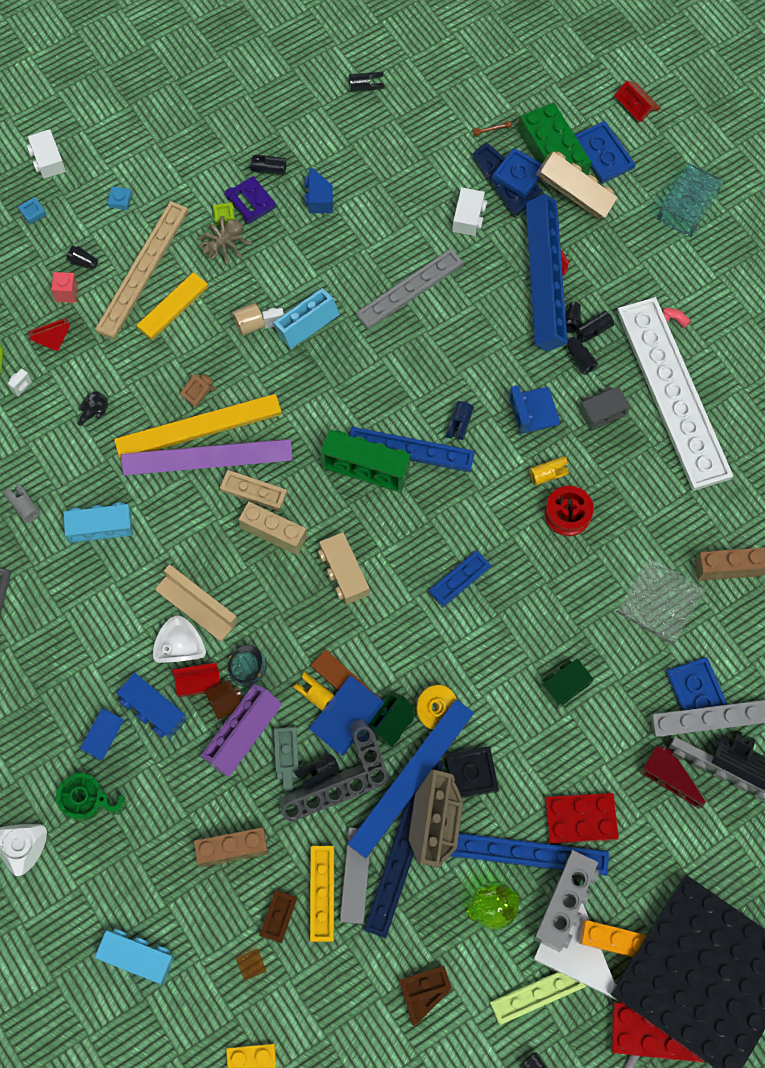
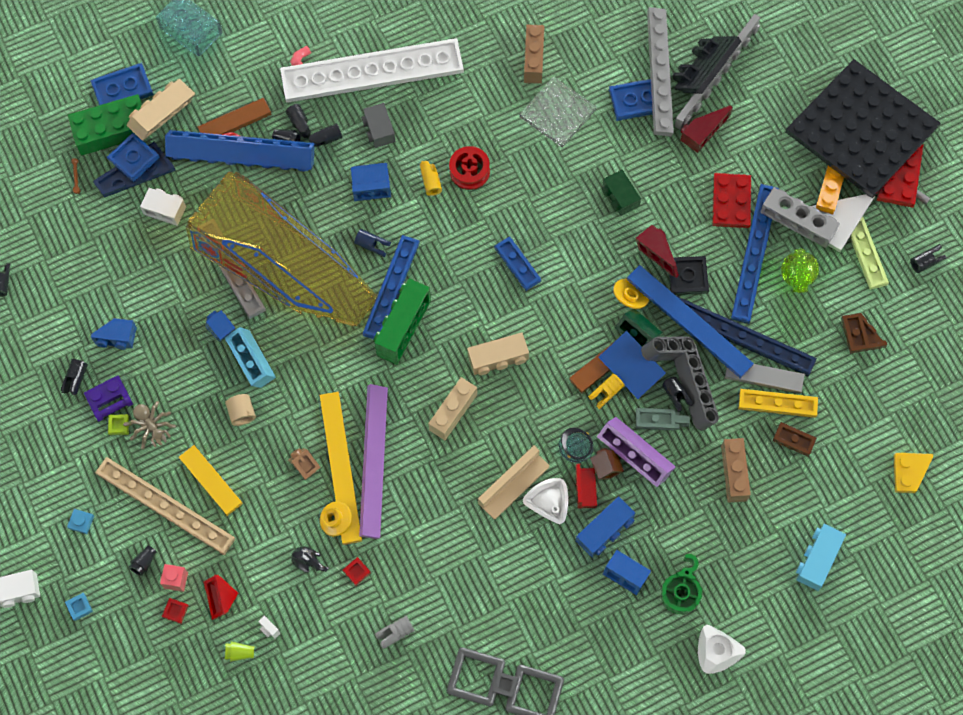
camera: 80 degrees left, 0 degrees up
(34, 296) = (175, 611): none -> red tile
(86, 458) = (356, 571): none -> red tile
(98, 522) = (425, 562): medium azure brick -> none
(140, 428) = (342, 518): none -> yellow piece
(251, 965) = (831, 466): clear orange tile -> none
(253, 490) = (412, 423): tan plate -> none
(272, 315) = (241, 386): white plate -> none
(336, 281) = (219, 325): none -> blue slope
(427, 327) = (276, 252): none -> clear yellow windscreen
(435, 819) = (729, 305): dark tan wedge -> none
(497, 732) = (655, 246): none -> dark red slope
(586, 266) = (237, 119): none -> dark orange tile
(636, 100) = (75, 50): red panel -> none

